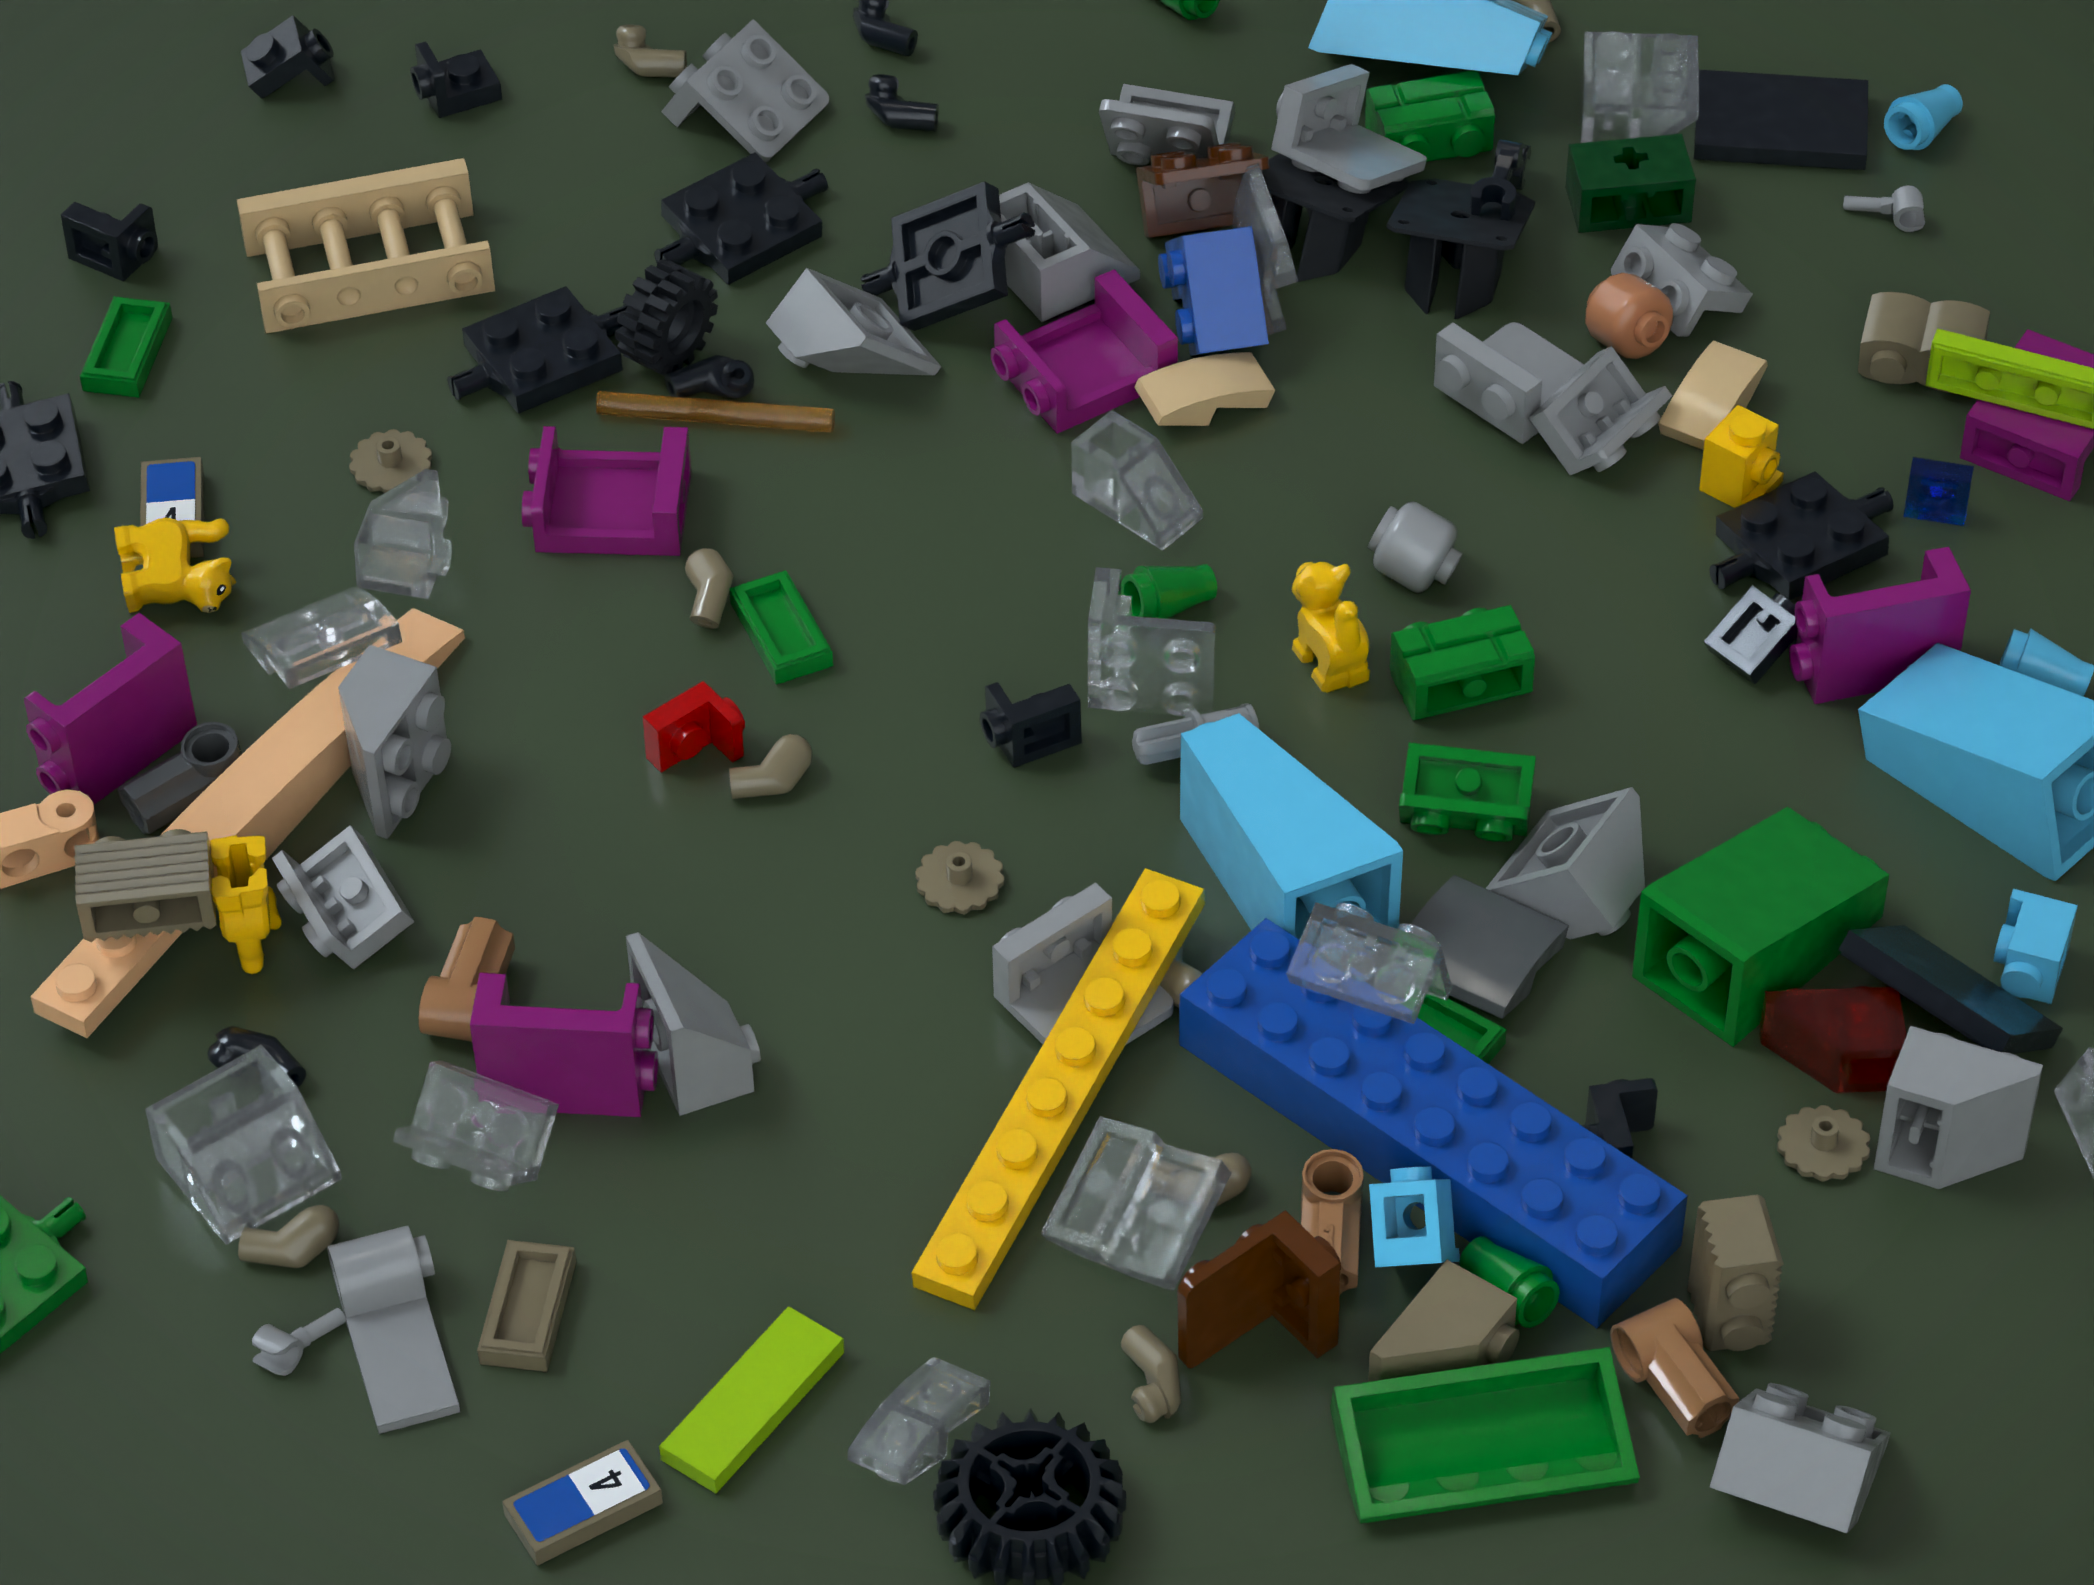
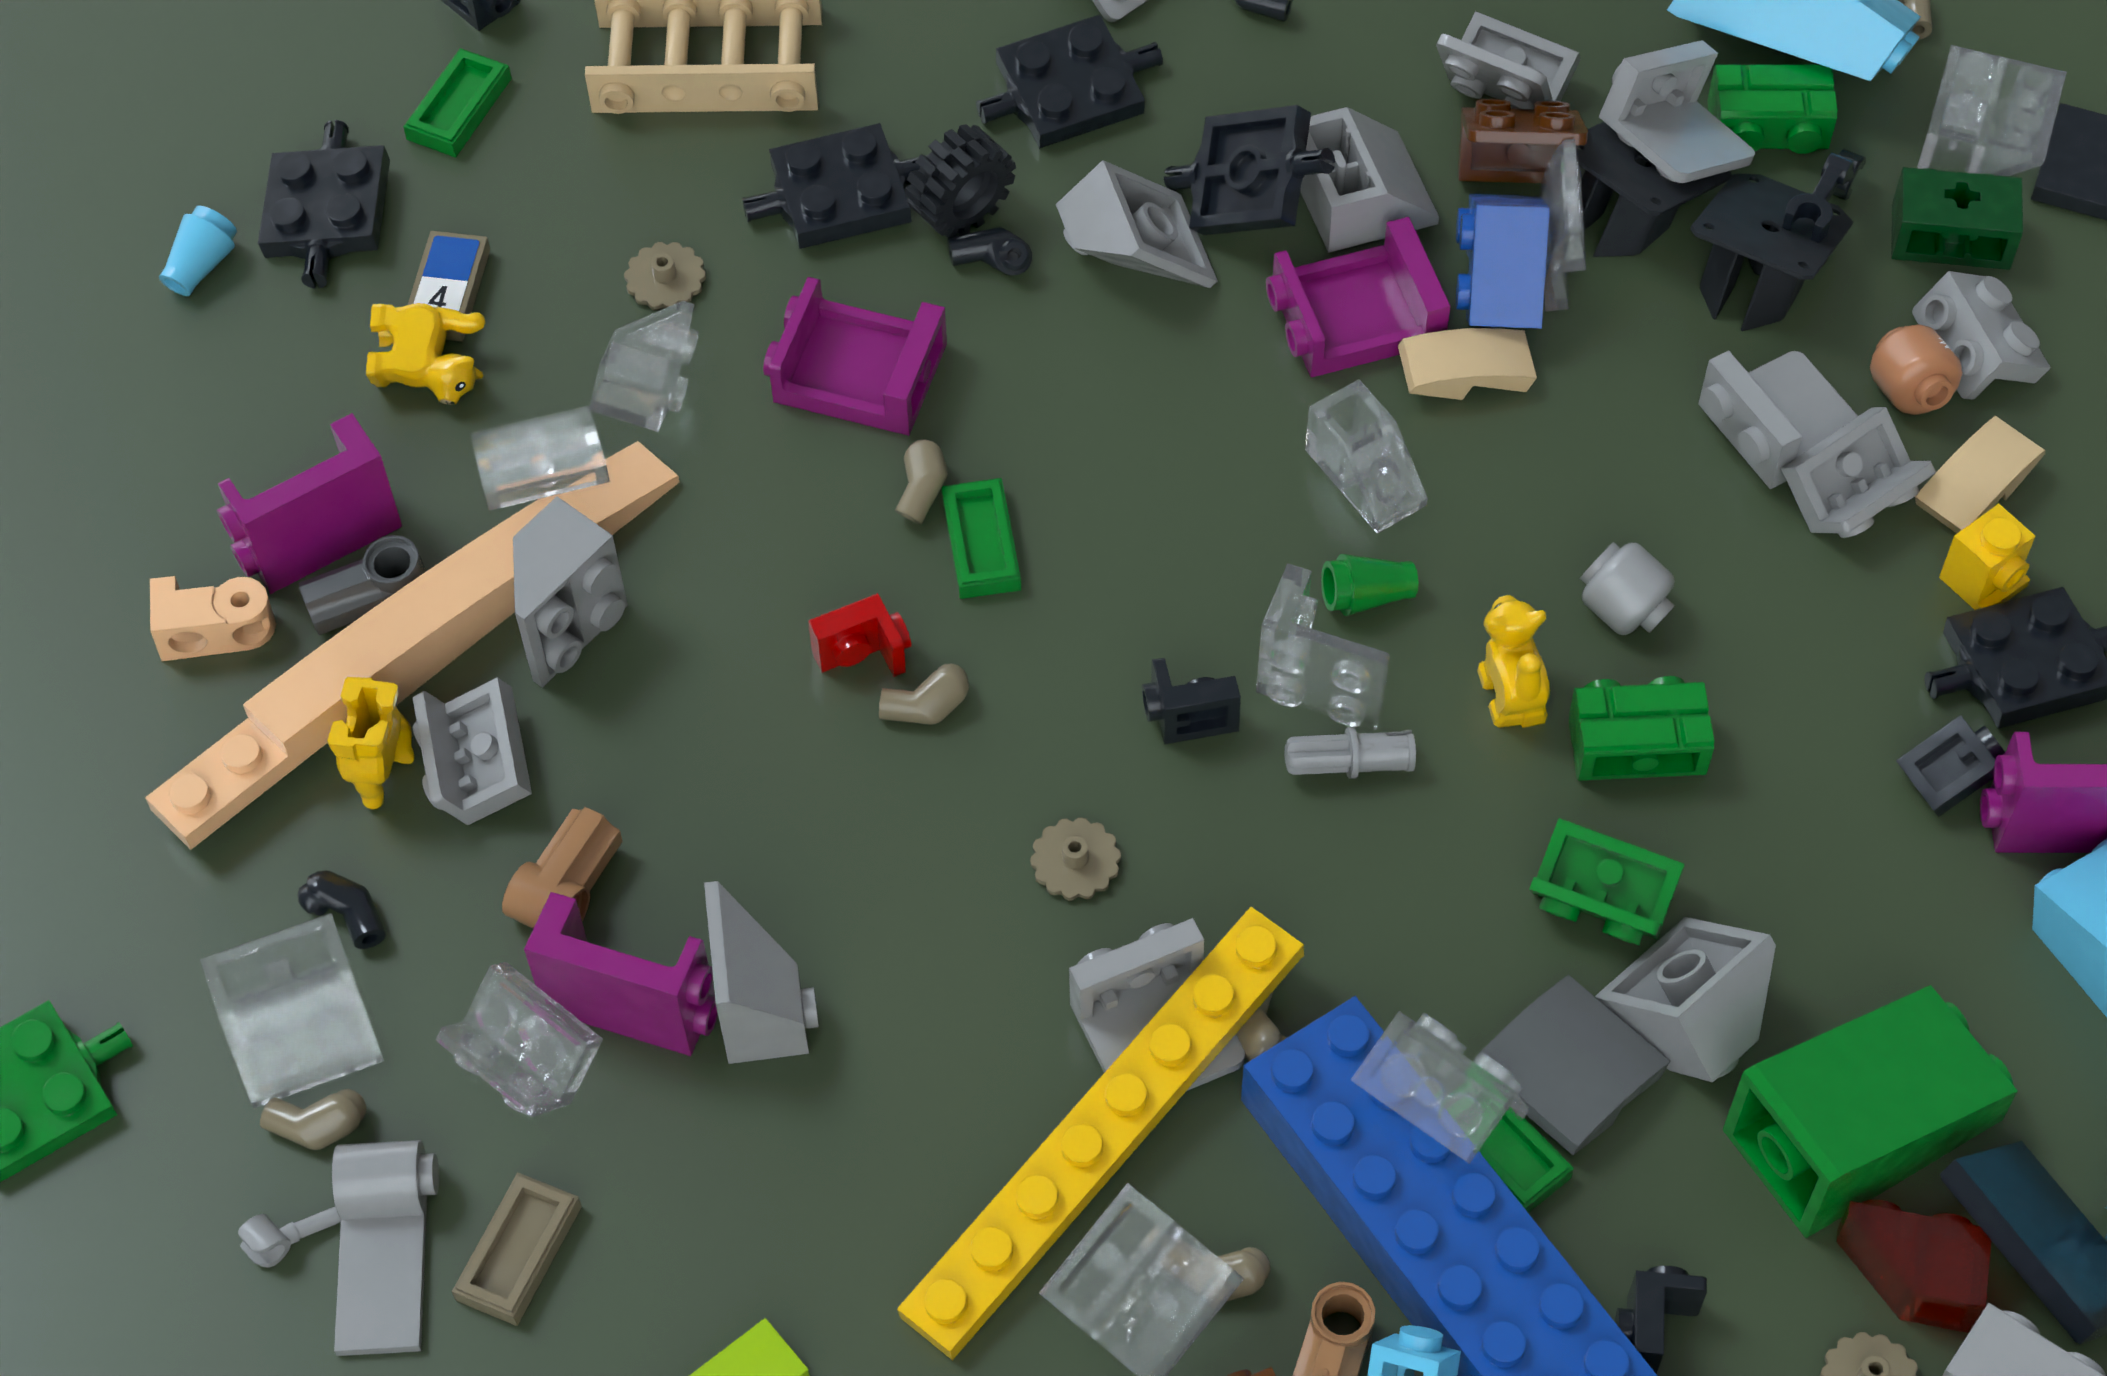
camera: 15 degrees right, 10 degrees up
(144, 885) = (268, 711): dark tan brick -> none
(715, 411) = (986, 286): clear orange bar -> none
(1280, 831) = (1399, 908): medium azure slope -> none

